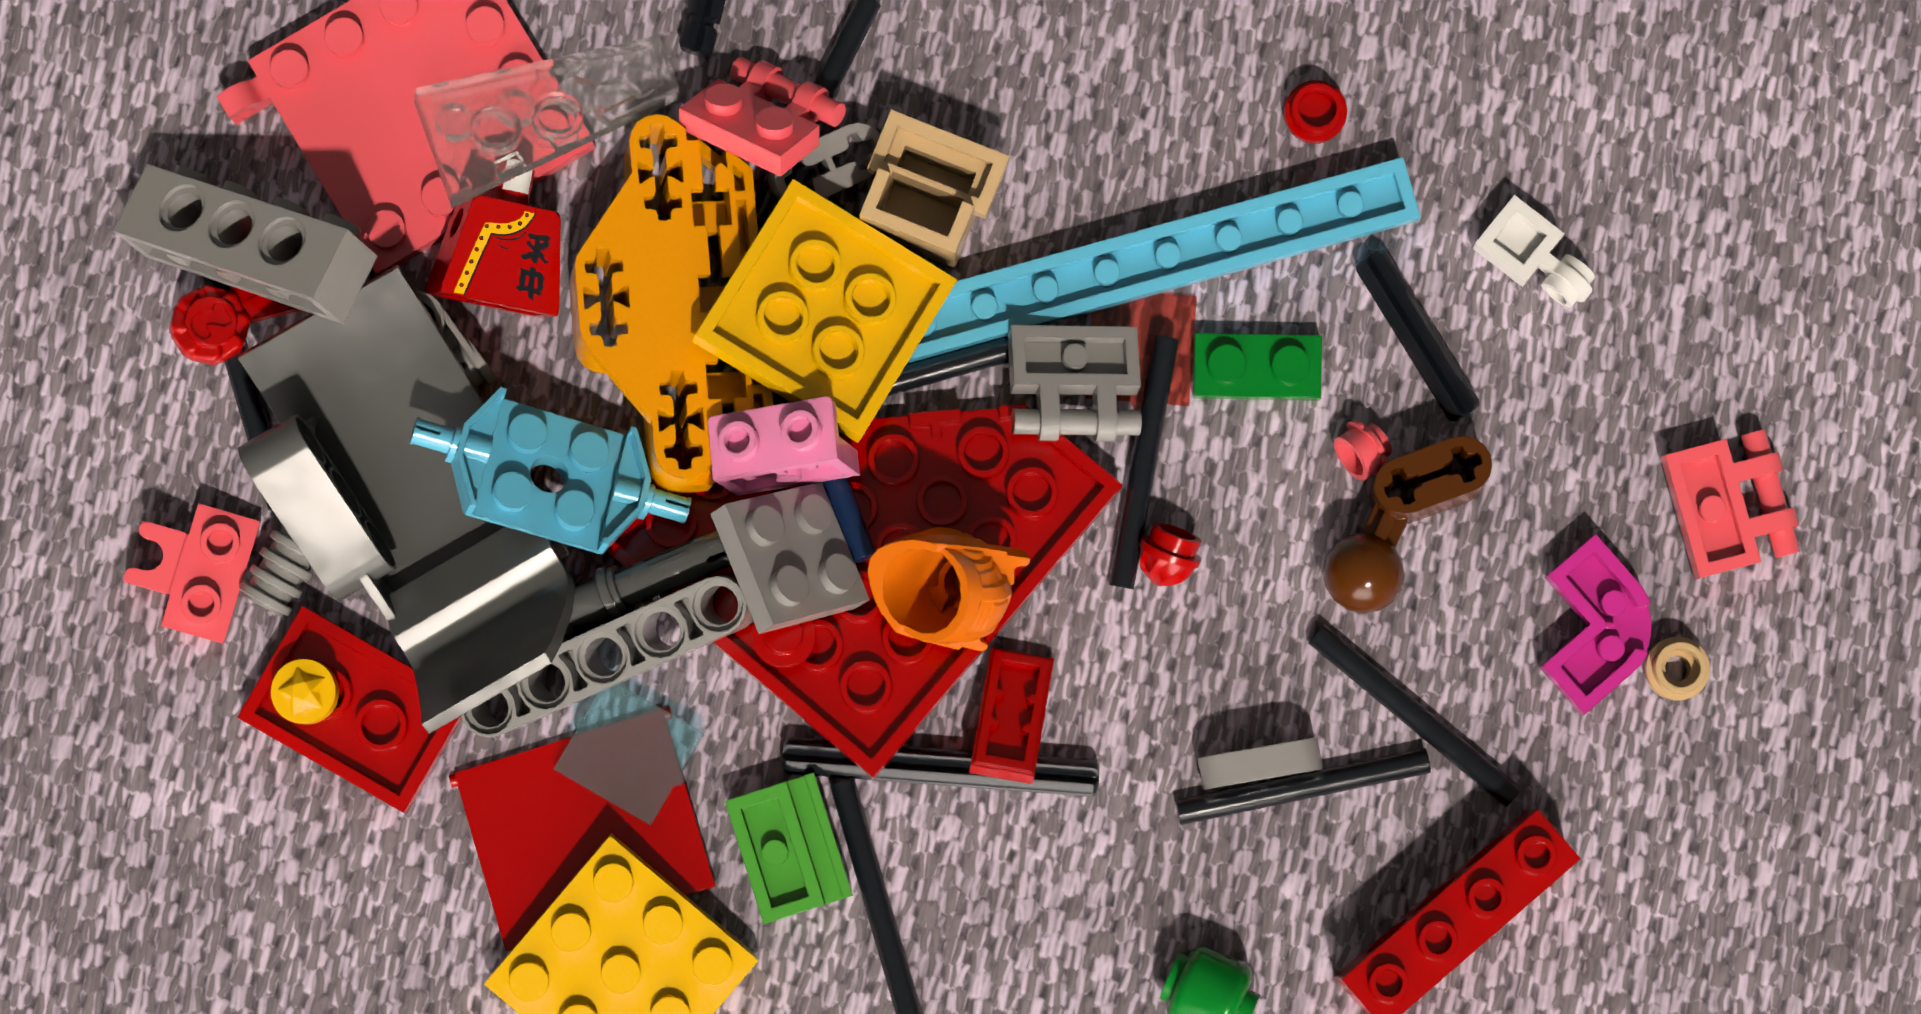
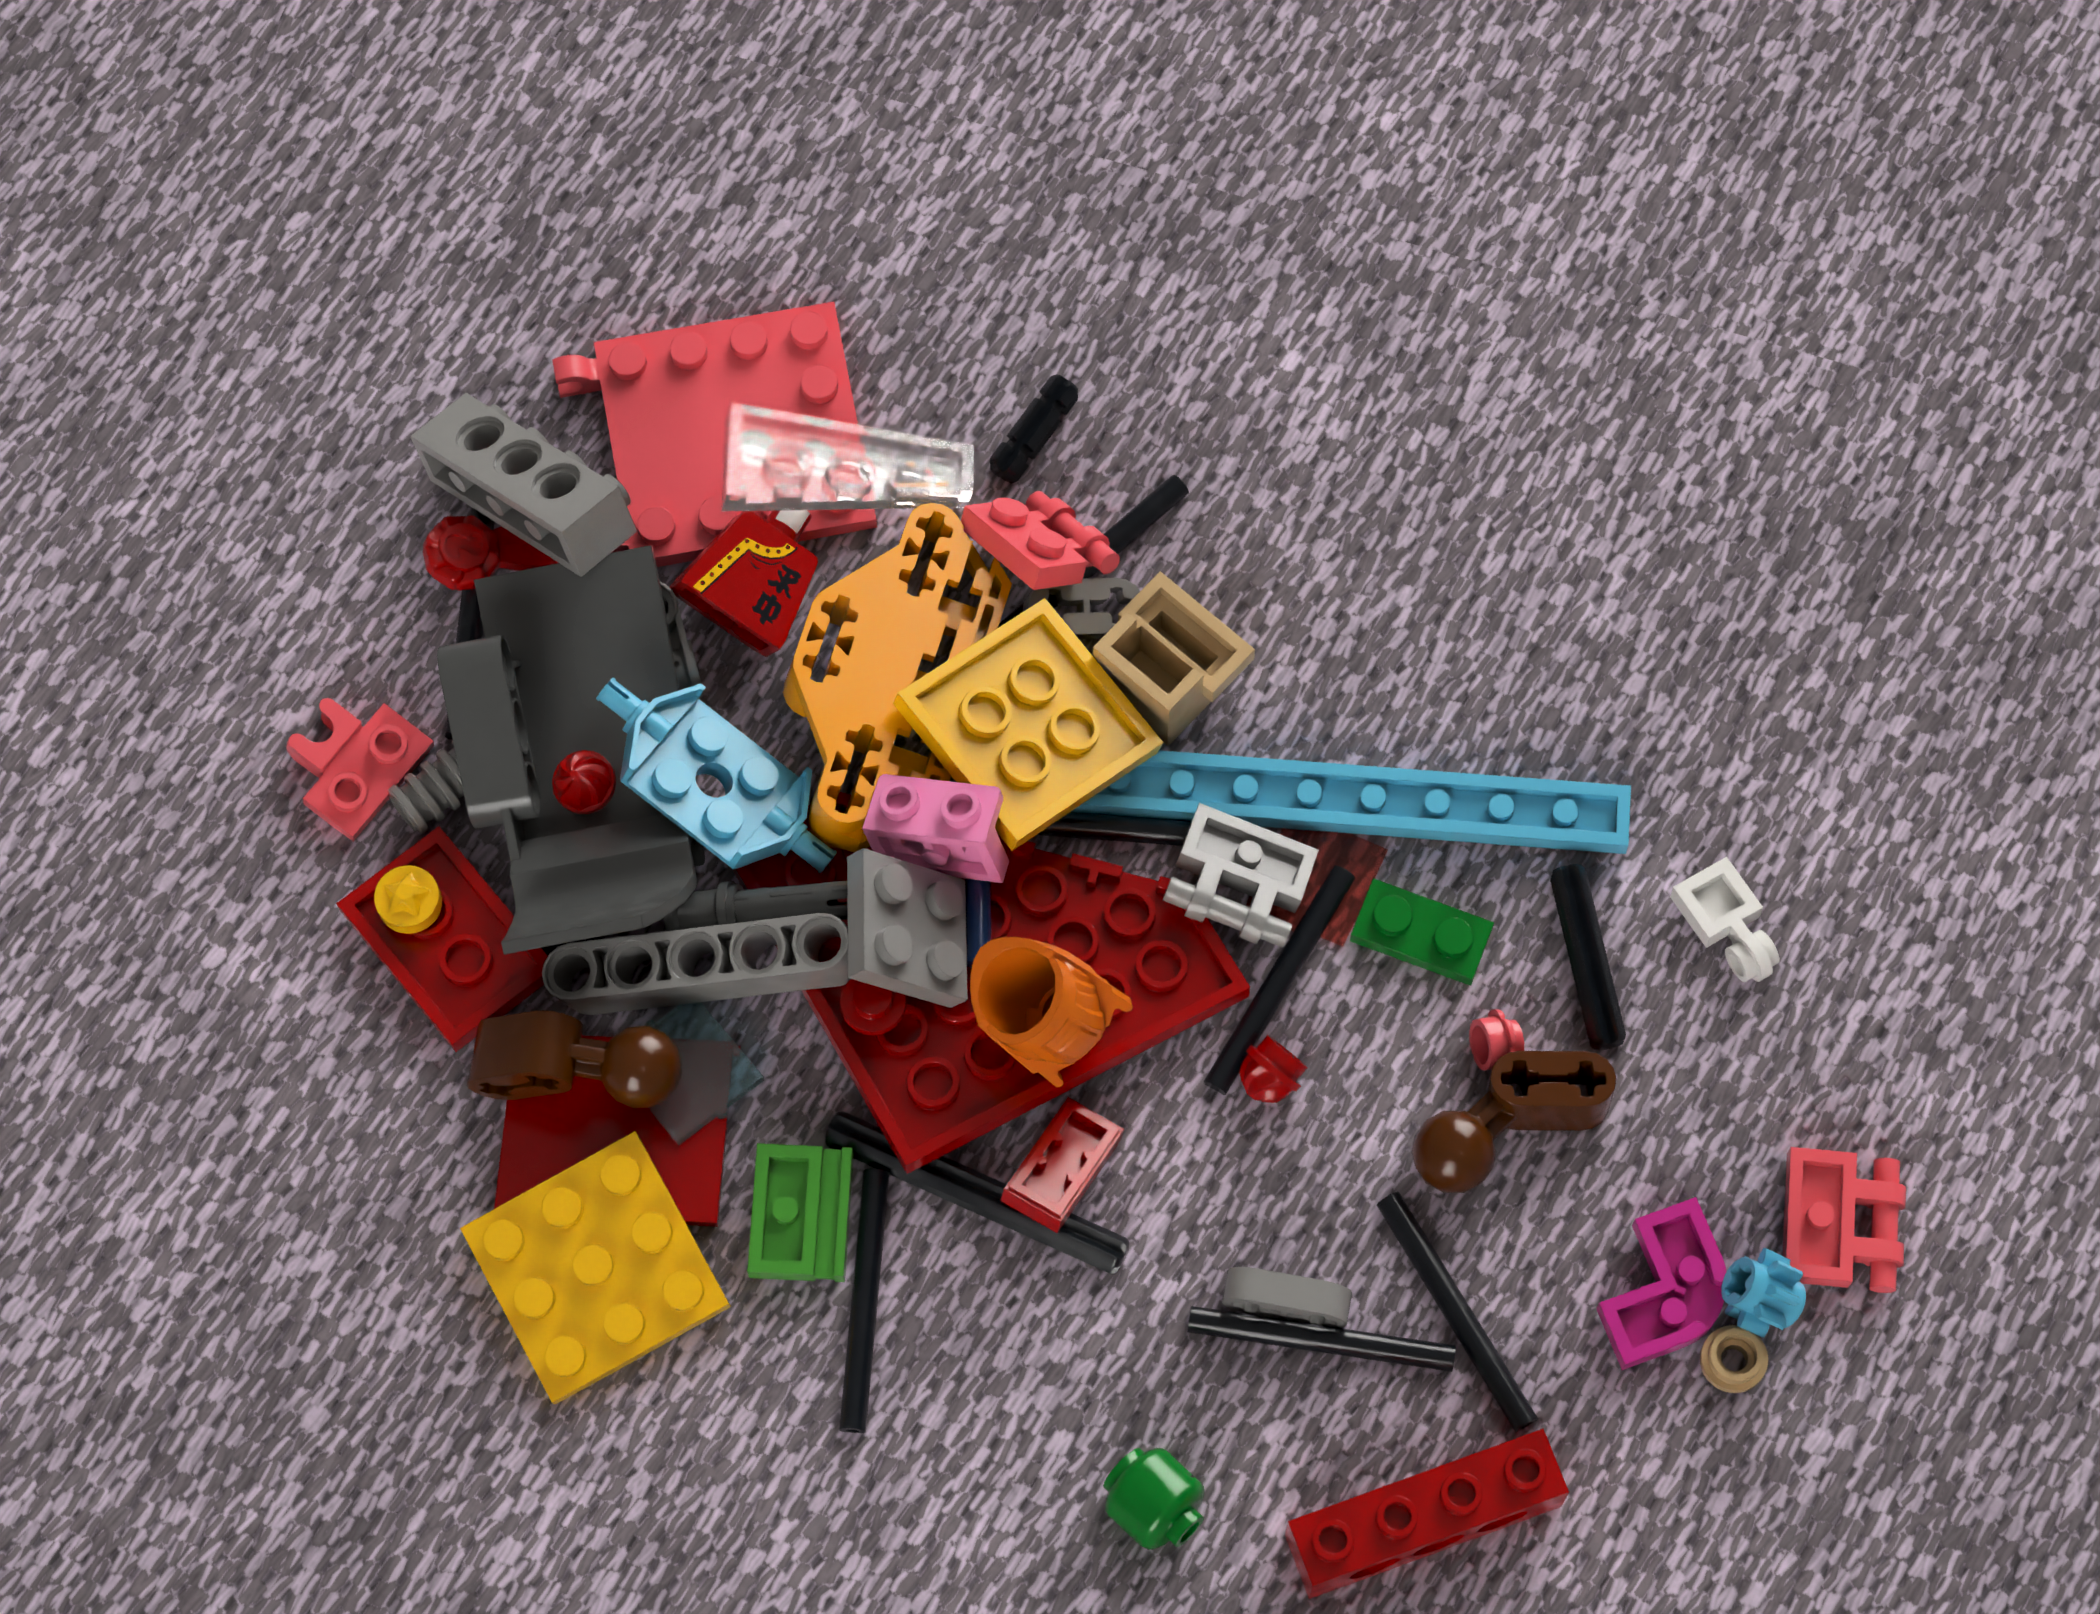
camera: 25 degrees right, 15 degrees down
(424, 517) = (584, 782): none -> red plate
(586, 777) = (544, 1051): none -> reddish brown beam
(1315, 112) = (1562, 721): red plate -> none
(1687, 603) = (1763, 1292): none -> medium azure gear

